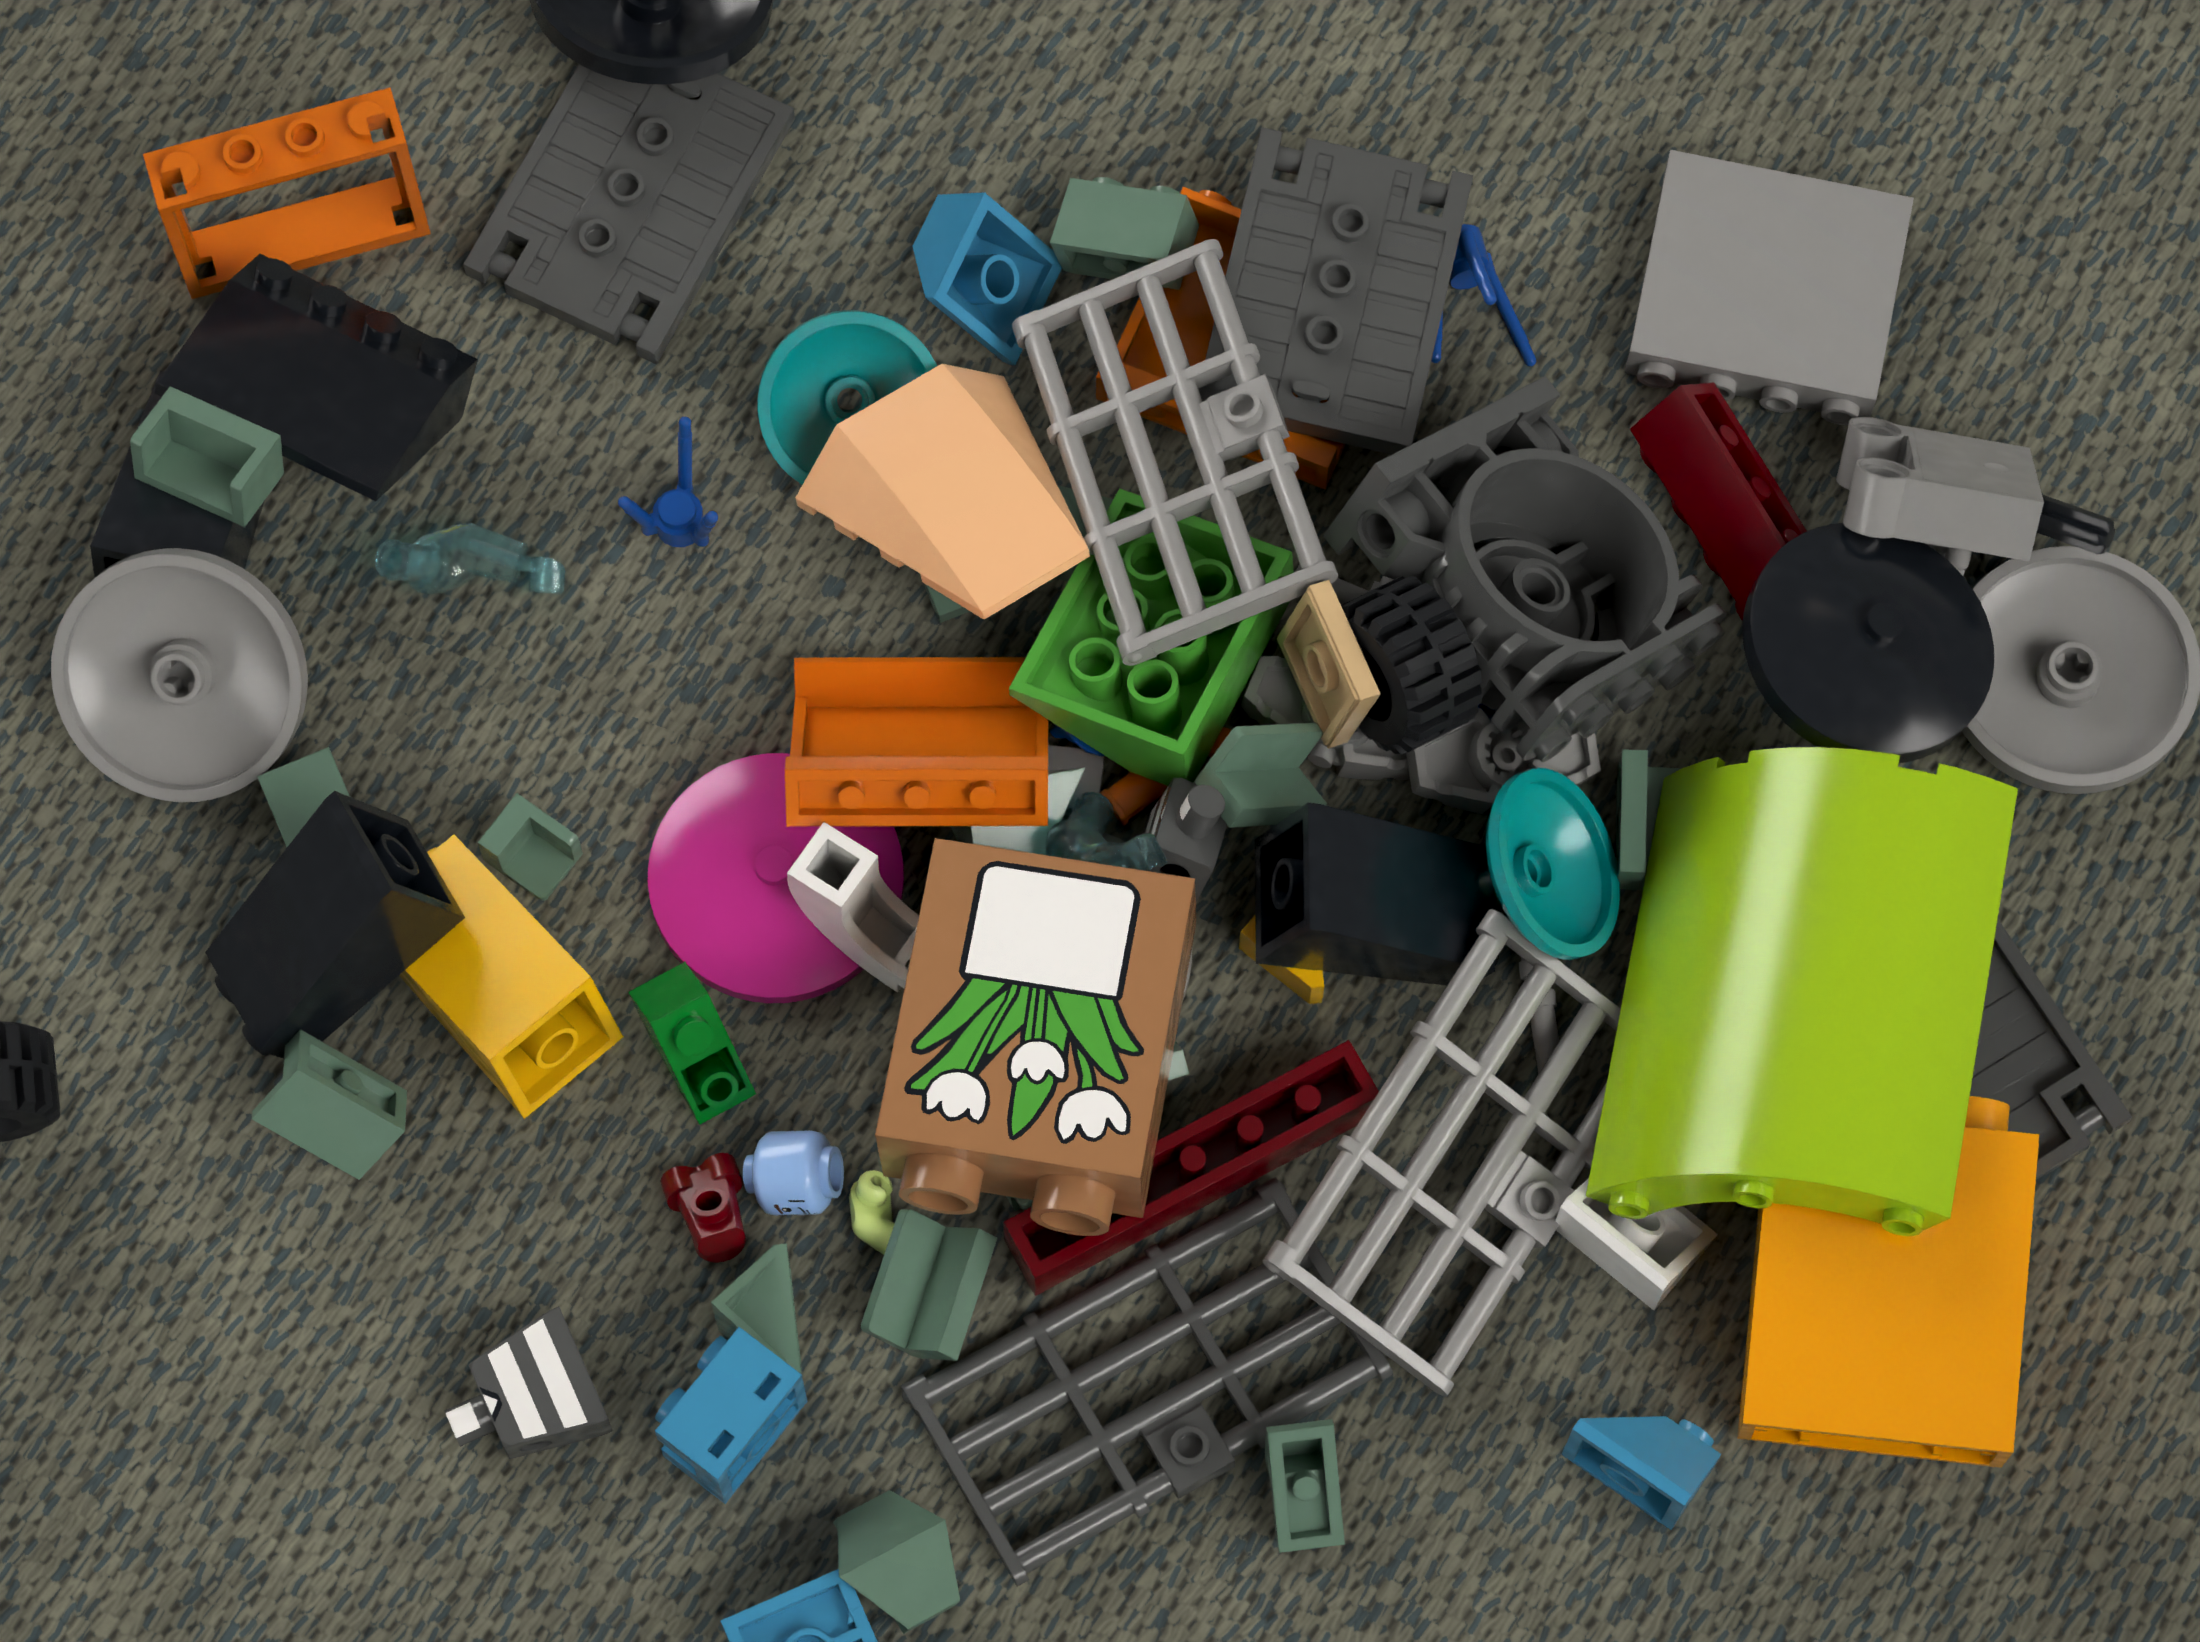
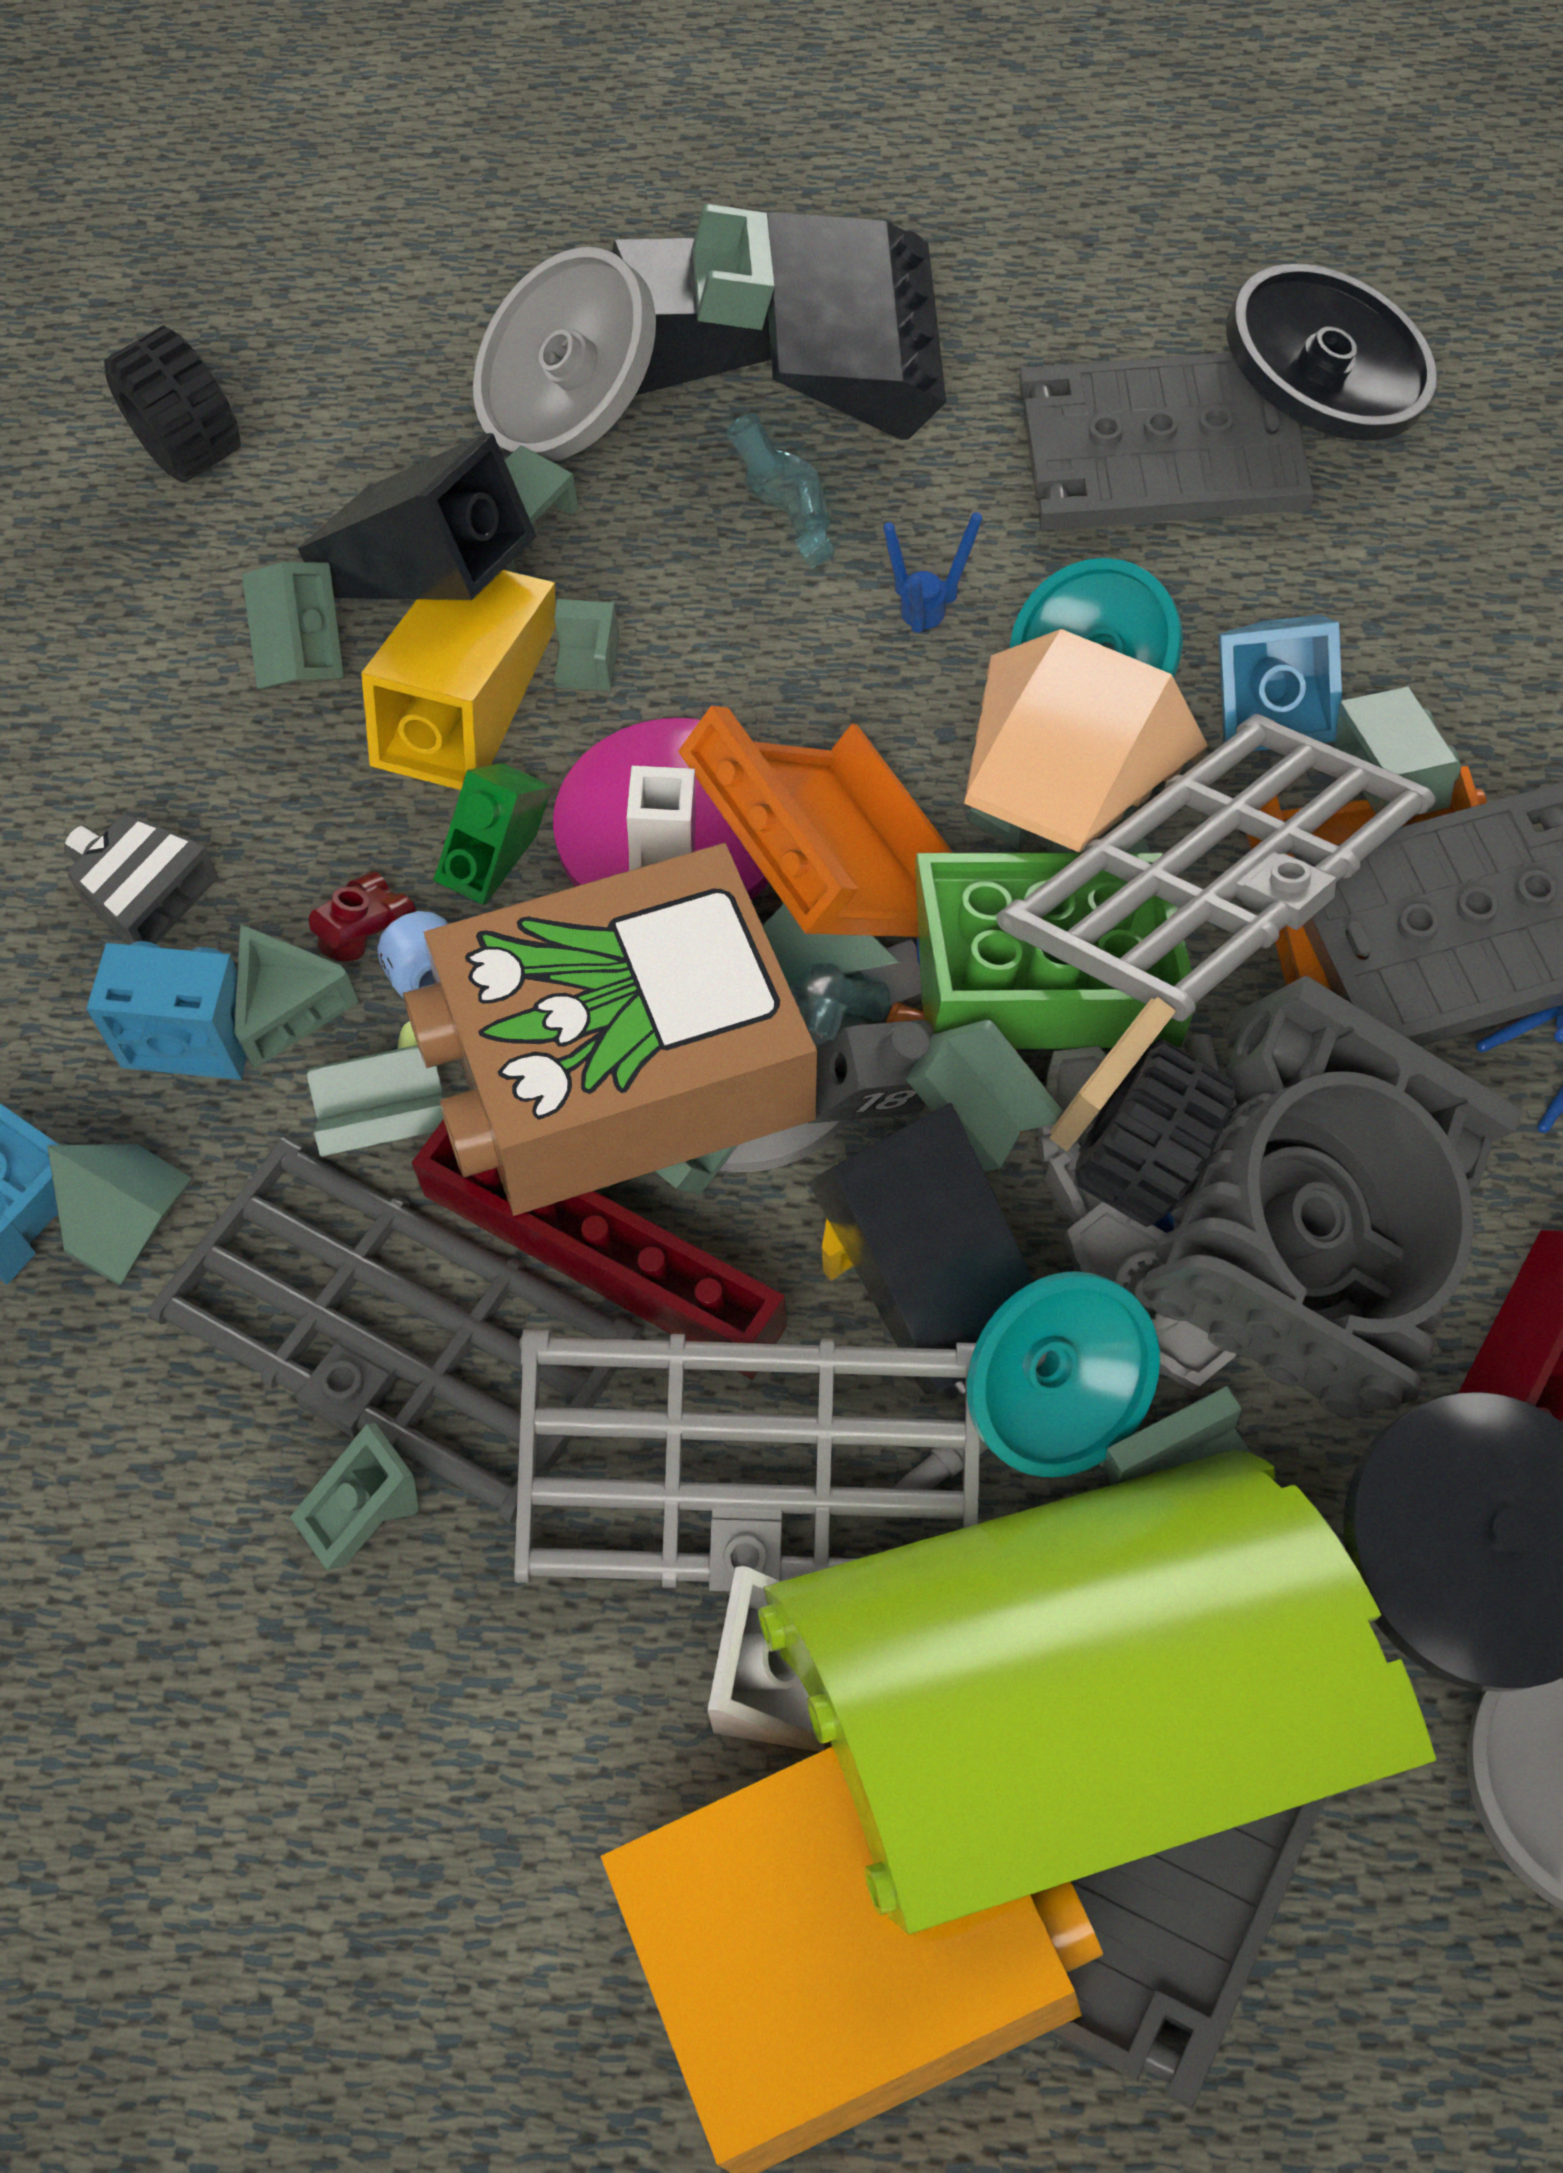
camera: 65 degrees right, 10 degrees down
(276, 153) = (922, 109): orange window -> none
(1645, 1460) = (539, 1804): dark azure slope -> none

